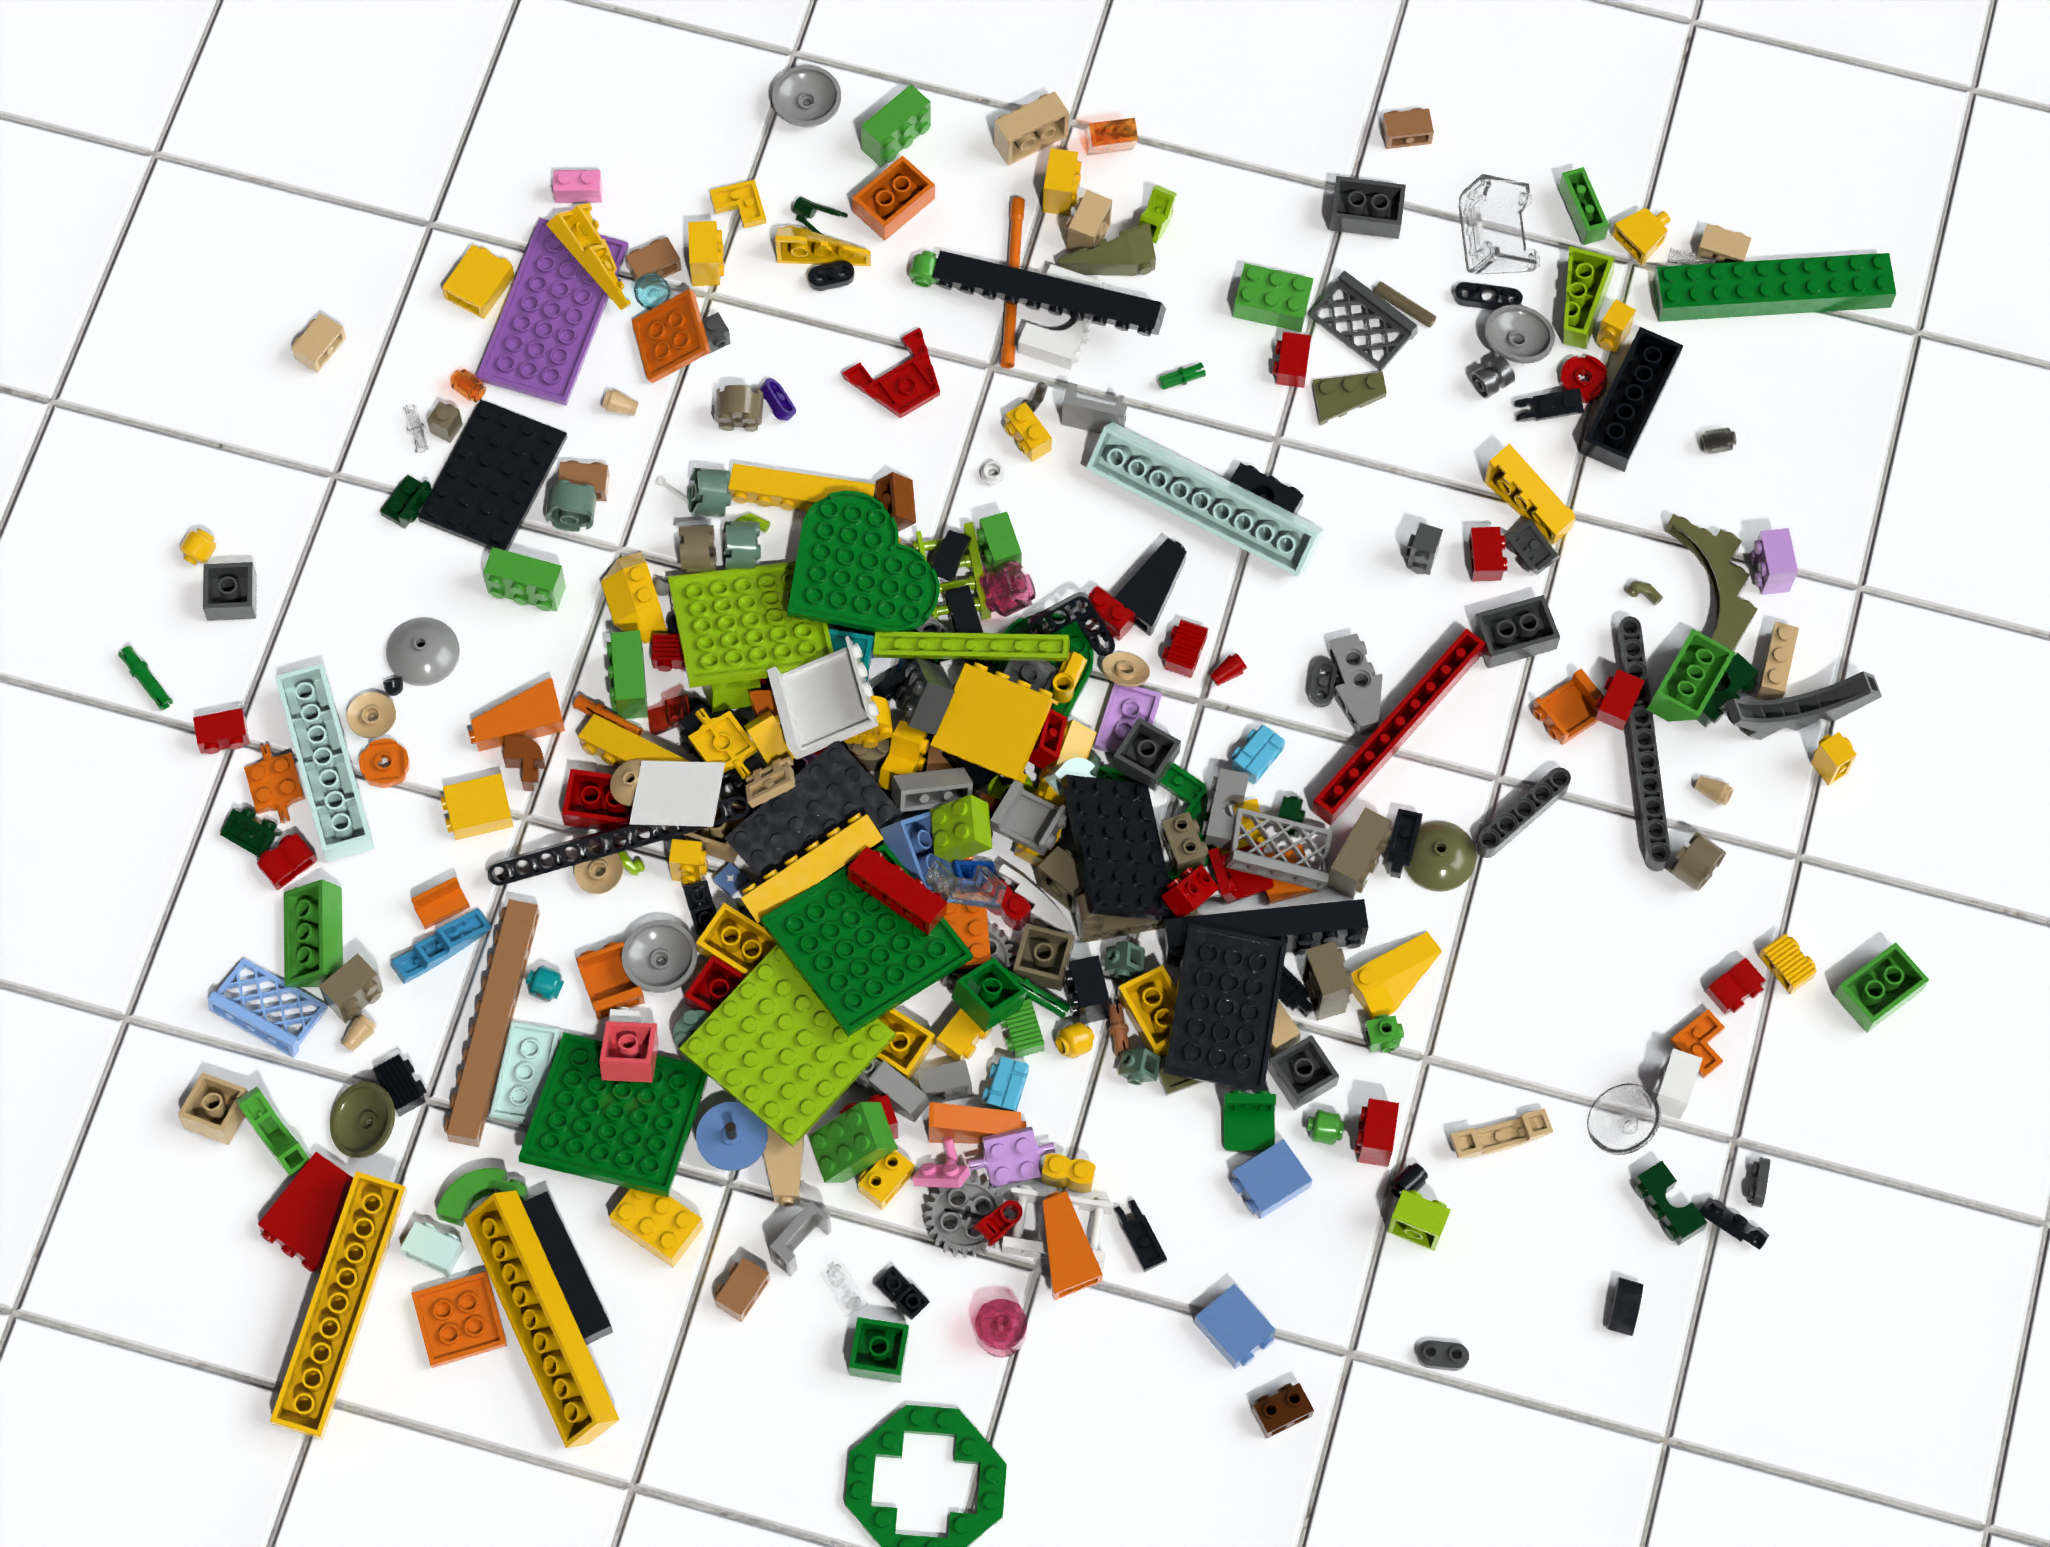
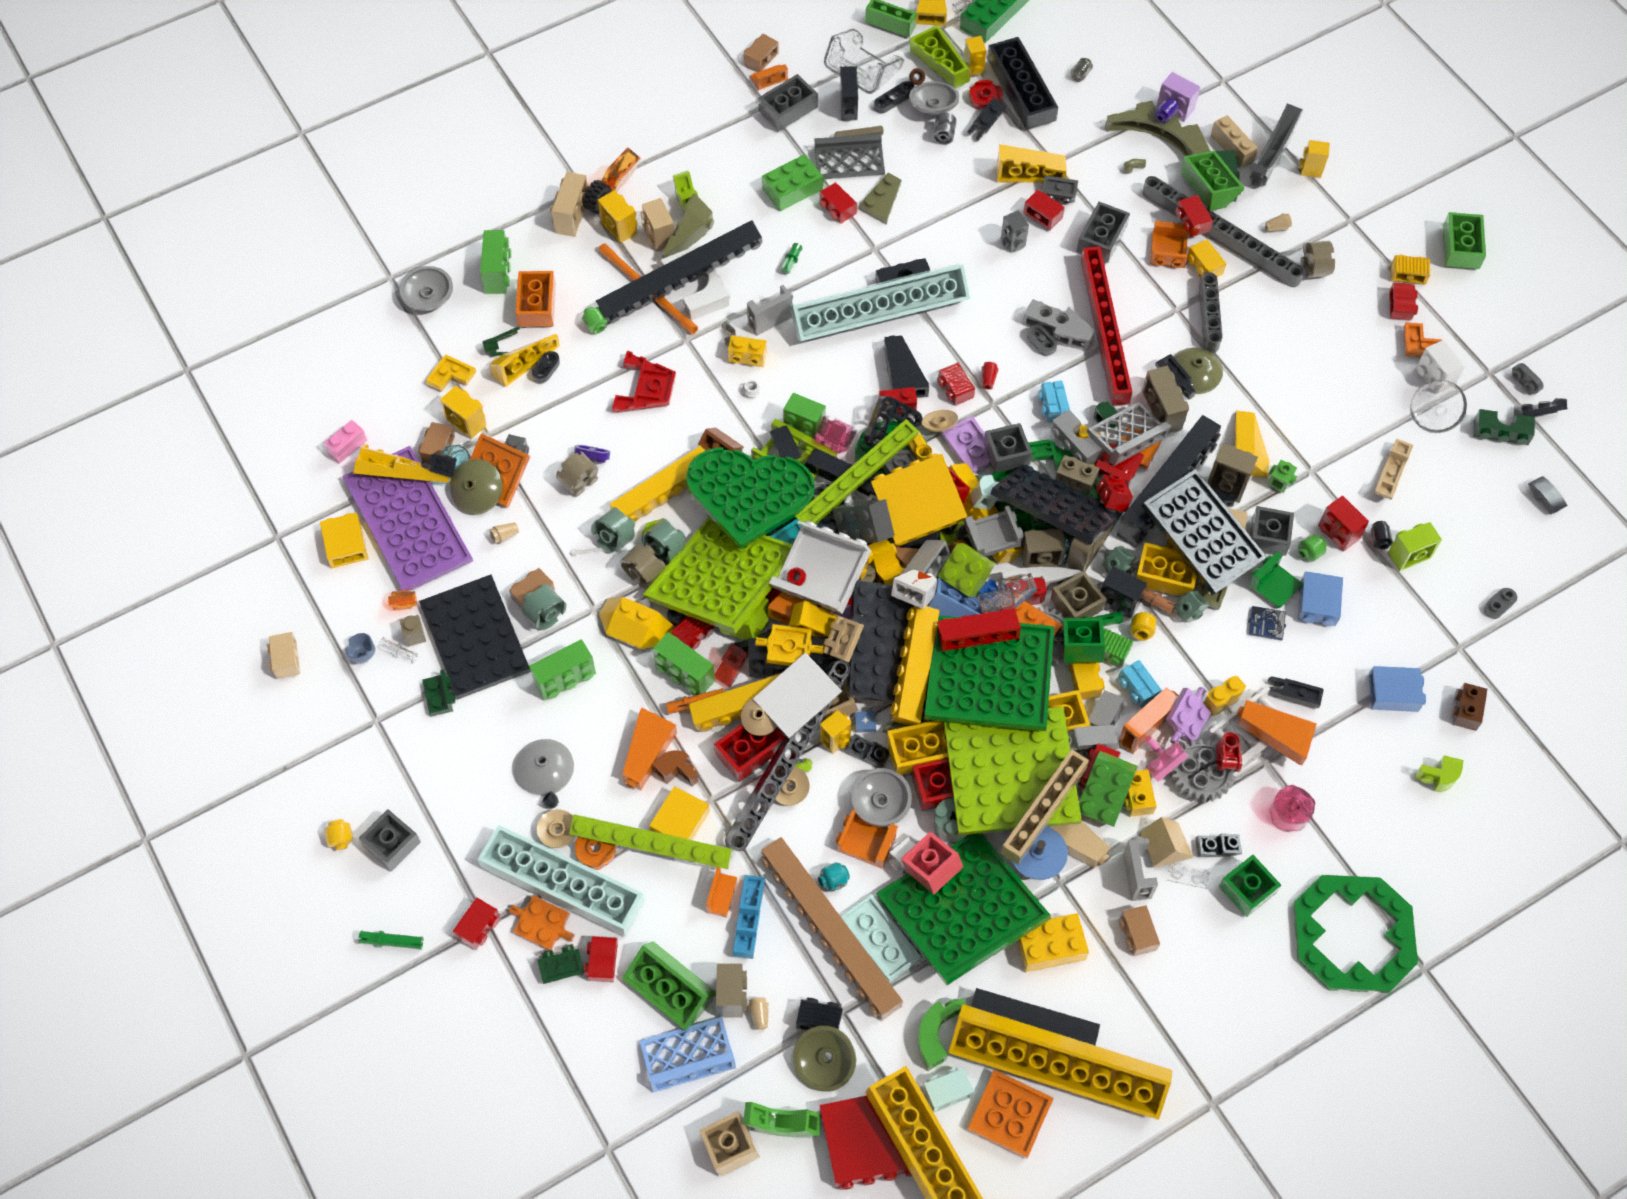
camera: 45 degrees left, 5 degrees down
(386, 397) = (360, 648): none -> sand blue hair
(428, 802) = (651, 841): none -> lime plate
(629, 287) = (442, 464): none -> black bracket
(646, 342) = (485, 490): none -> olive dish
(765, 1097) = (1044, 807): none -> tan brick
(796, 682) = (793, 573): none -> red plate
(858, 1243) = (1166, 842): none -> tan slope
(882, 798) = (915, 588): none -> white torso
(1067, 138) = (595, 191): none -> black tyre
(1178, 1445) = (1443, 776): none -> lime brick
(1197, 1152) = (1267, 623): none -> piece
(1388, 161) = (770, 76): none -> orange panel
(1437, 252) = (848, 93): none -> black brick
(1524, 295) = (921, 76): none -> reddish brown cone
(1587, 756) = (1206, 258): none -> yellow brick
(1735, 565) = (1166, 110): none -> dark purple brick

